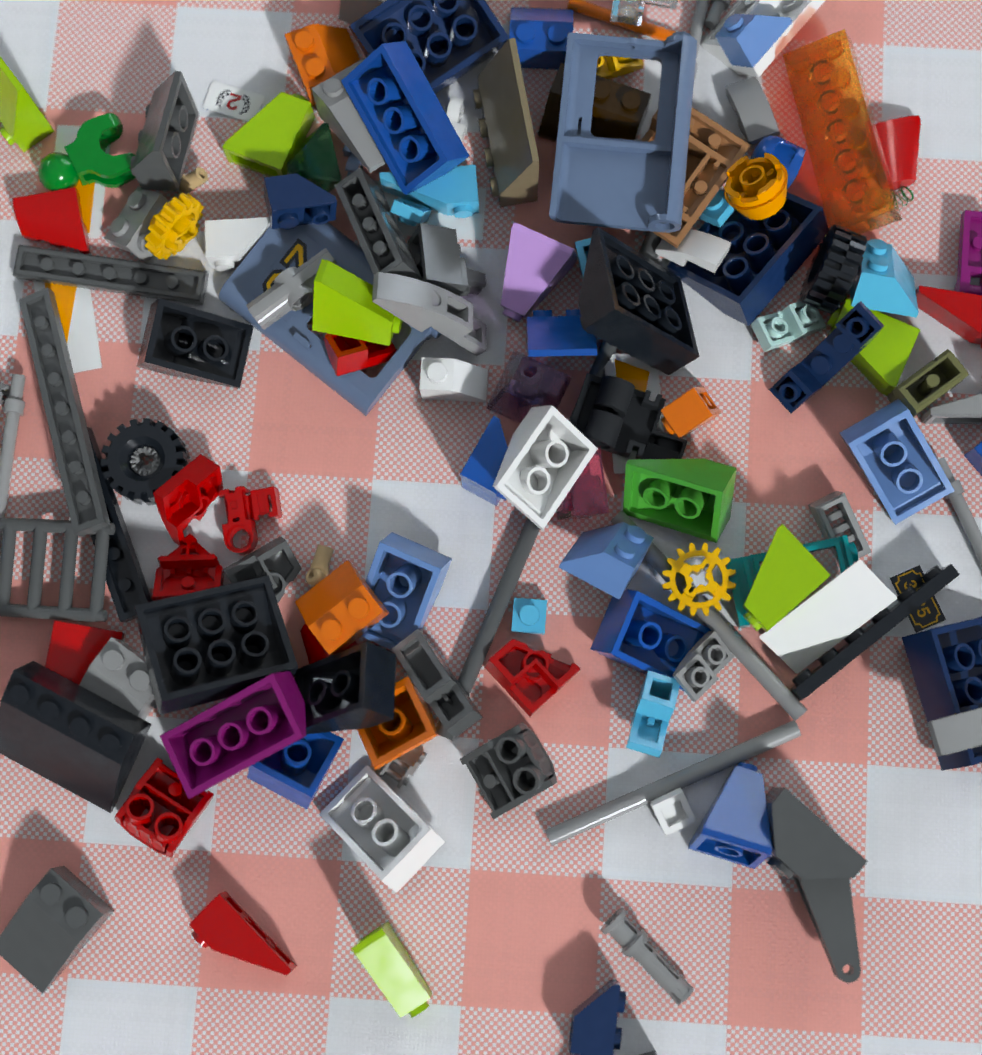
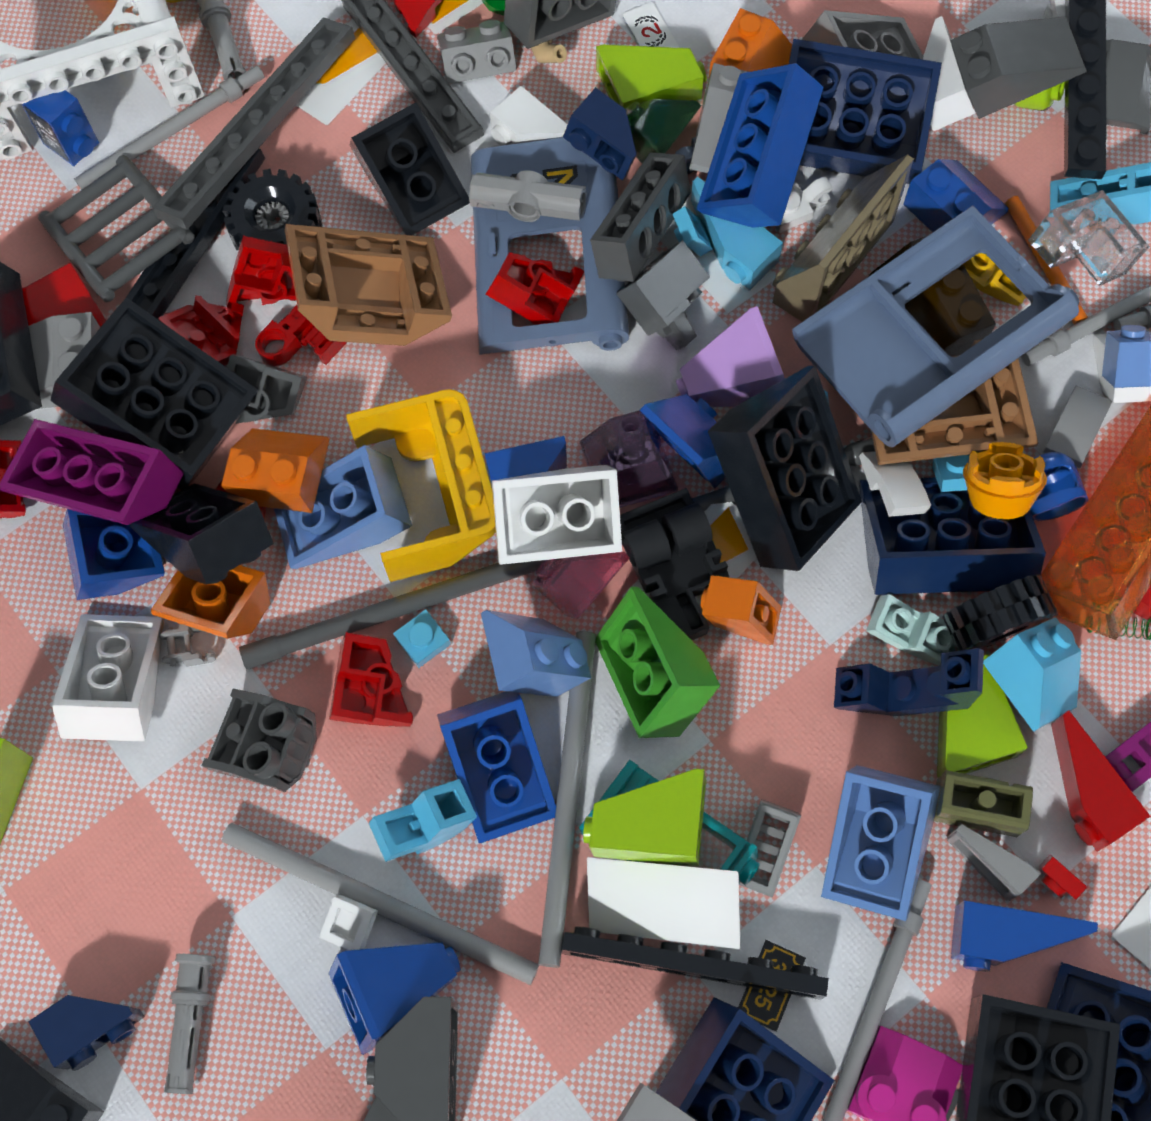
camera: 45 degrees right, 10 degrees down
(174, 226) = (492, 67): yellow gear -> none
(258, 441) = (367, 284): none -> medium nougat slope
(320, 565) = (312, 425): tan arm -> none
(346, 307) = (553, 247): lime slope -> none
(428, 306) = (614, 305): light grey slope -> none
(436, 683) = (281, 608): dark grey slope -> none
(447, 497) = (439, 429): none -> yellow windscreen
(452, 380) = (574, 389): white slope -> none
(685, 571) = (603, 749): yellow gear -> none
(701, 664) = (511, 828): light grey slope -> none

